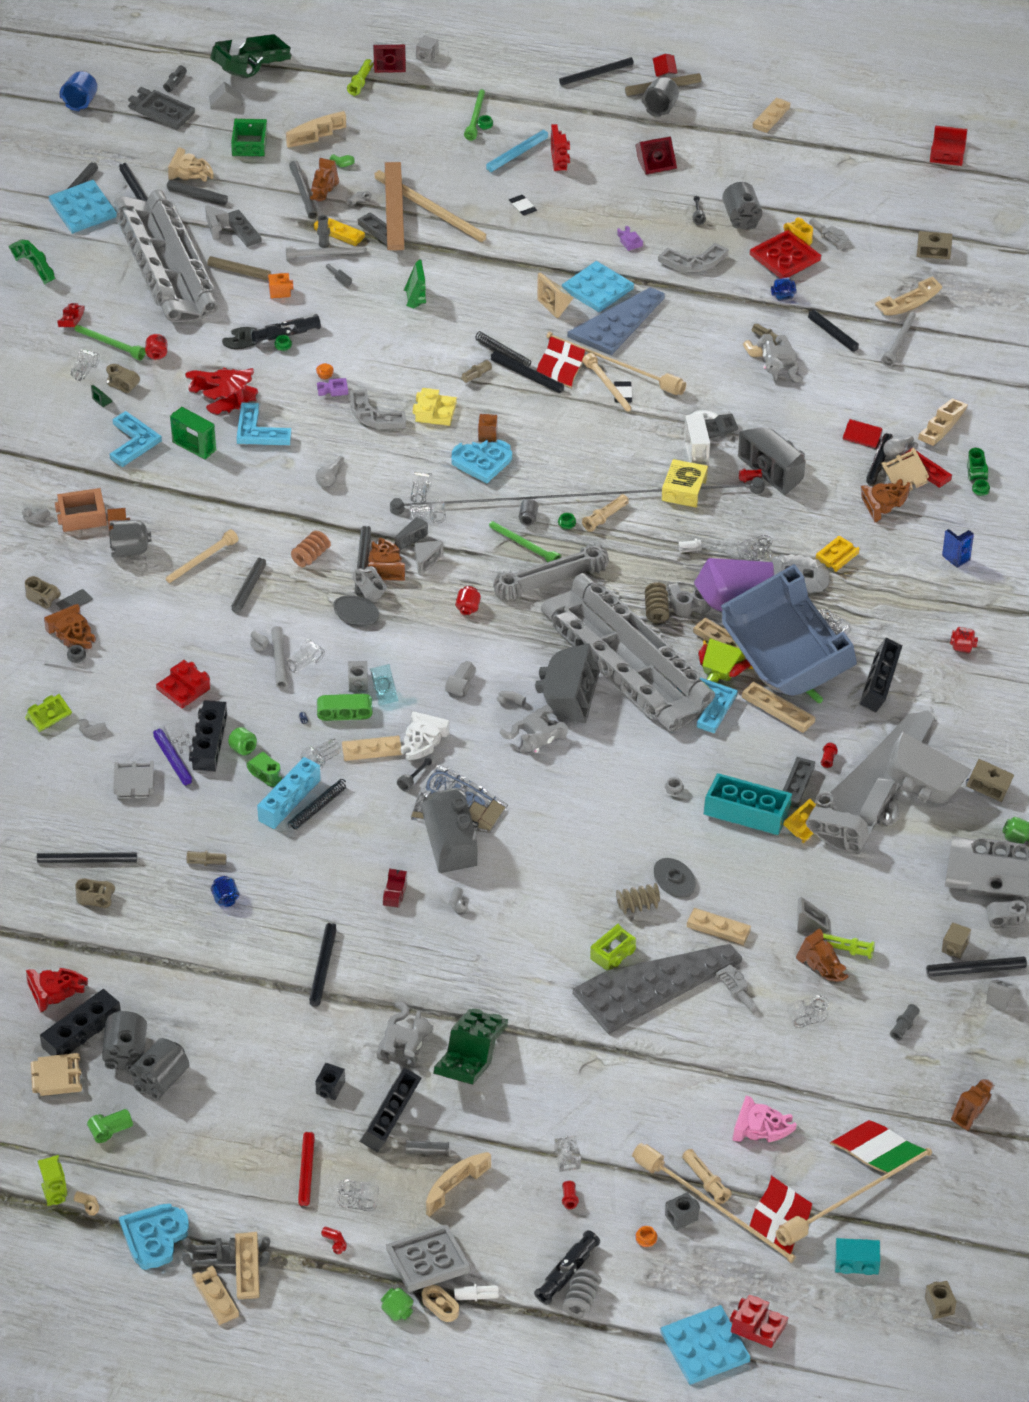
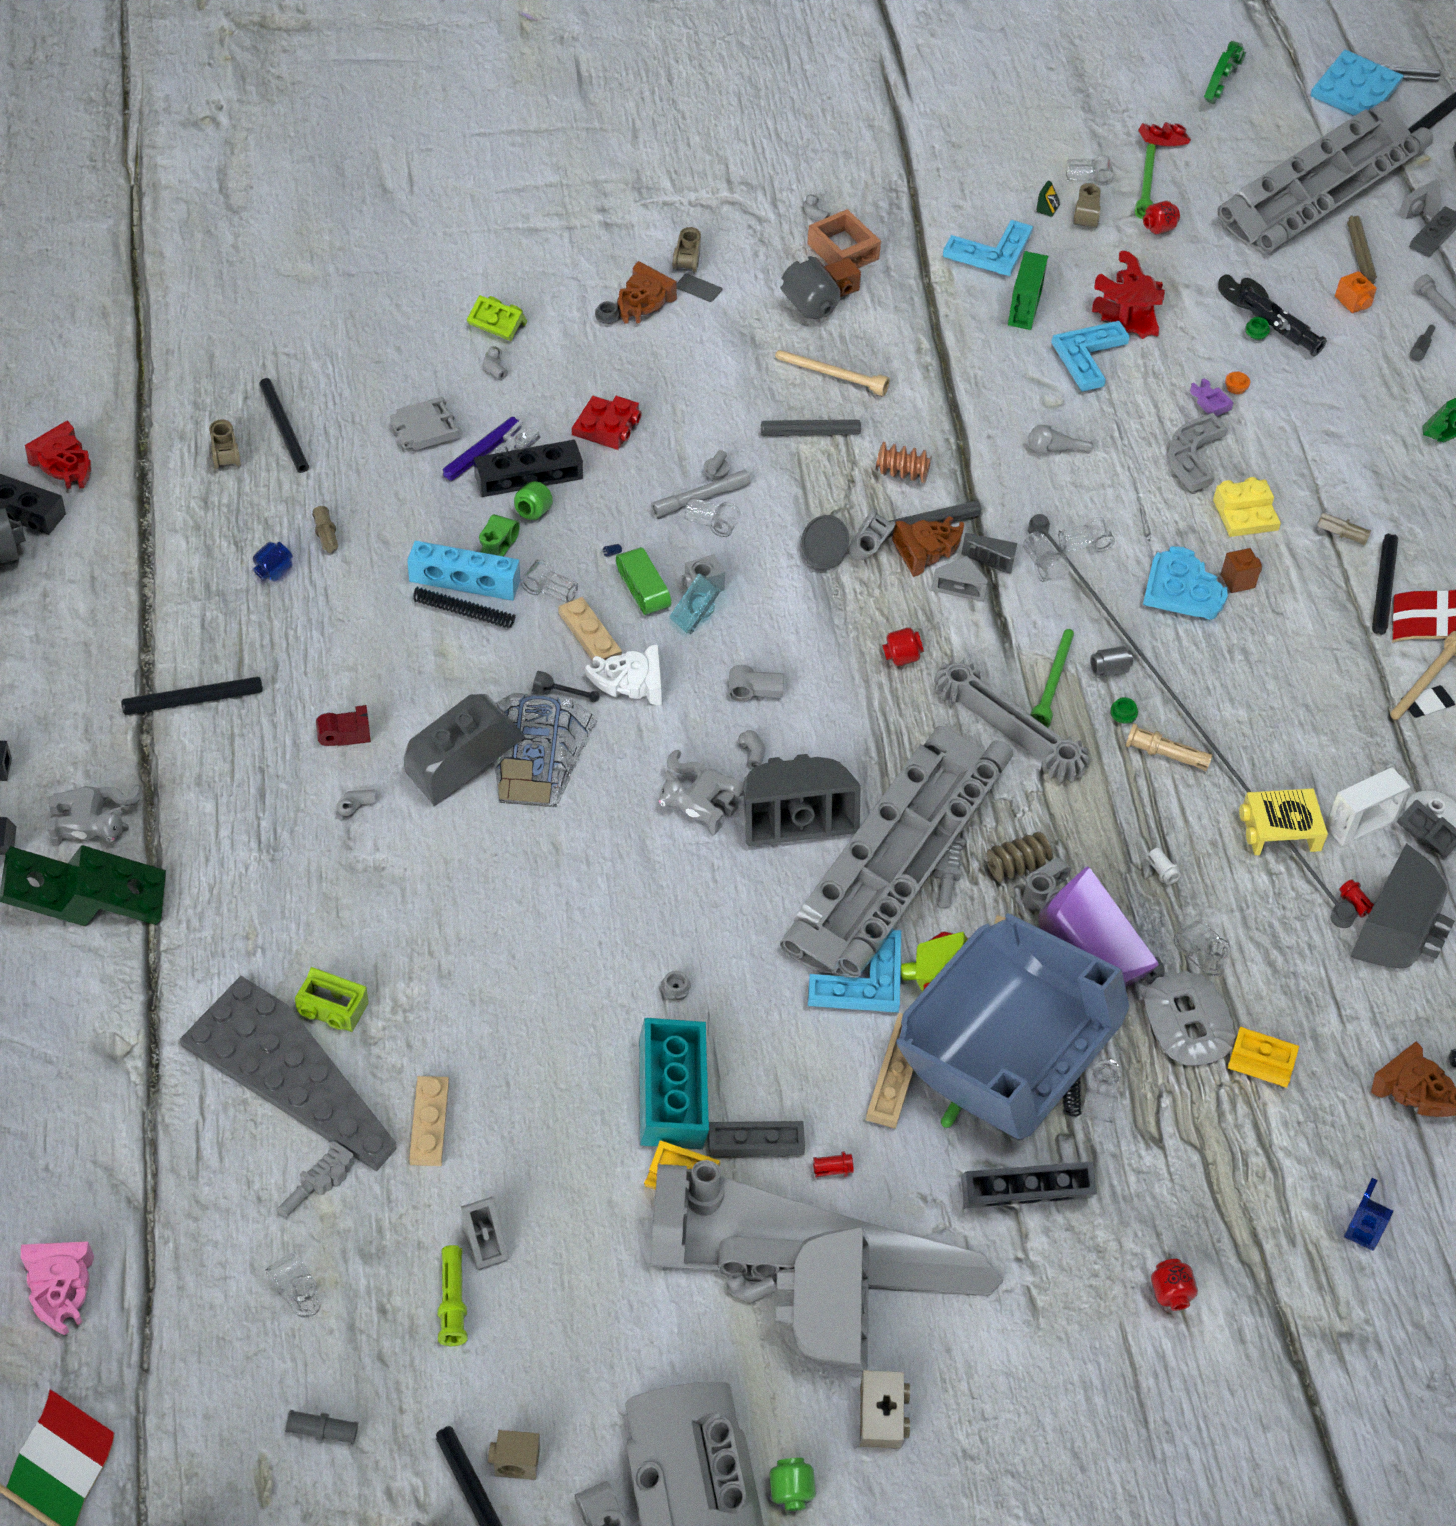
camera: 65 degrees right, 5 degrees up
(499, 347) = (1406, 556): black piece -> none
(638, 898) = (431, 1001): dark tan piece -> none
(674, 877) = (503, 1038): dark grey piece -> none
(821, 957) = (397, 1267): dark orange piece -> none

